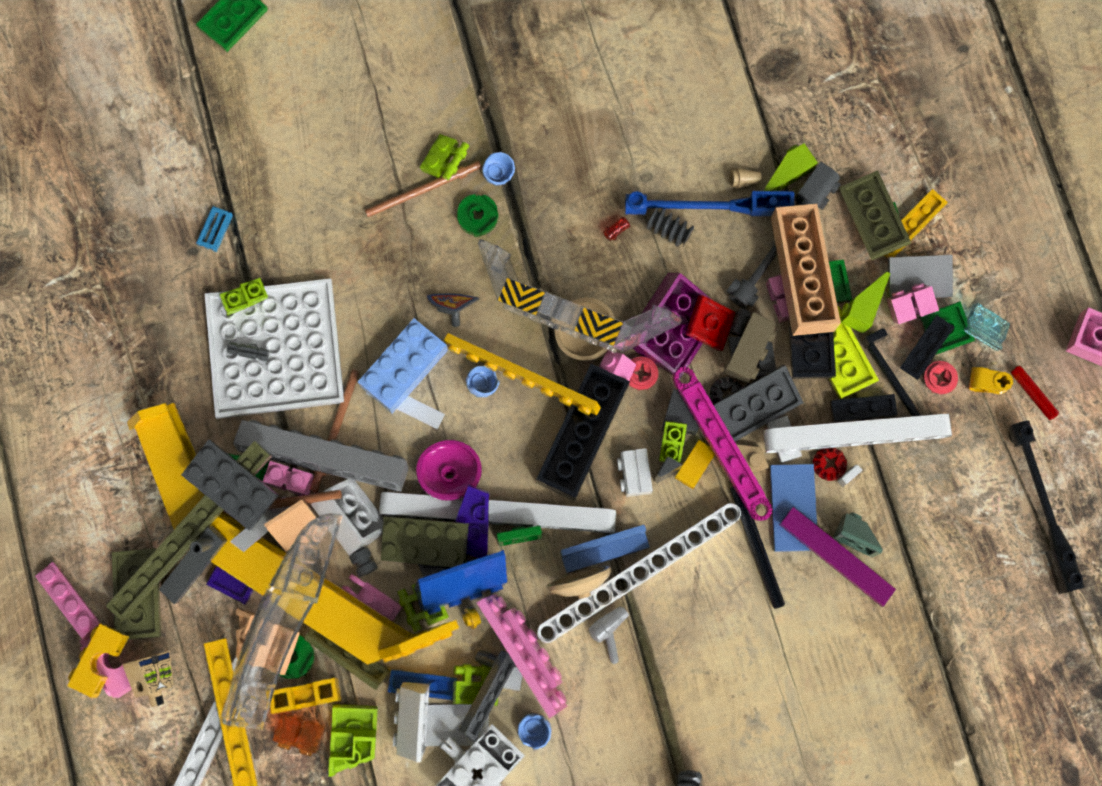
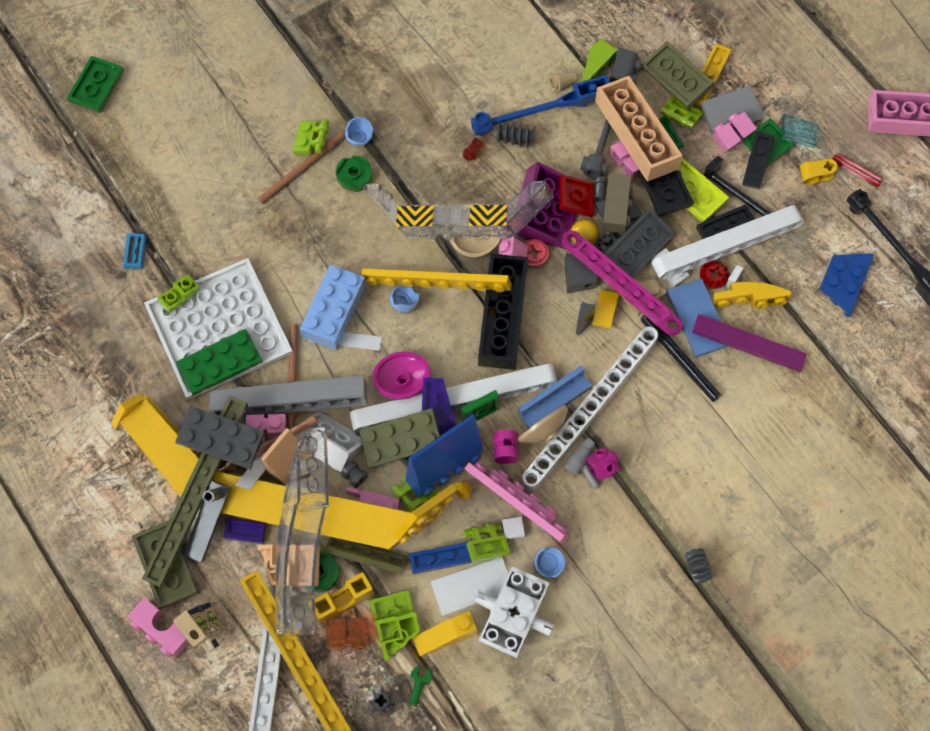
camera: 15 degrees left, 10 degrees down
(68, 600) = (106, 588): bright pink plate -> none
(86, 677) = (150, 606): yellow arch -> none
(247, 351) = (197, 335): dark grey axle -> none
(262, 389) = (219, 362): none -> green plate
(399, 770) = (446, 634): none -> yellow slope
(411, 720) = (441, 586): white slope -> none
(451, 304) = (357, 248): shield -> none
(501, 668) = (500, 541): dark grey piece -> none
(531, 594) = (505, 444): none -> dark pink wheel
(630, 641) = (603, 463): none -> dark pink brick
(635, 472) = (558, 330): white brick -> none
(672, 441) = (579, 292): lime slope -> none
(706, 368) = (587, 230): none -> yellow hair
(857, 535) = (760, 321): sand green slope -> none
(862, 309) = (696, 144): lime slope -> none
(868, 503) = (758, 294): none -> yellow slope
(870, 268) = (679, 113): none -> lime plate
(950, 376) = (784, 178): coral gear -> none
(972, 517) = (845, 279): none -> blue wing

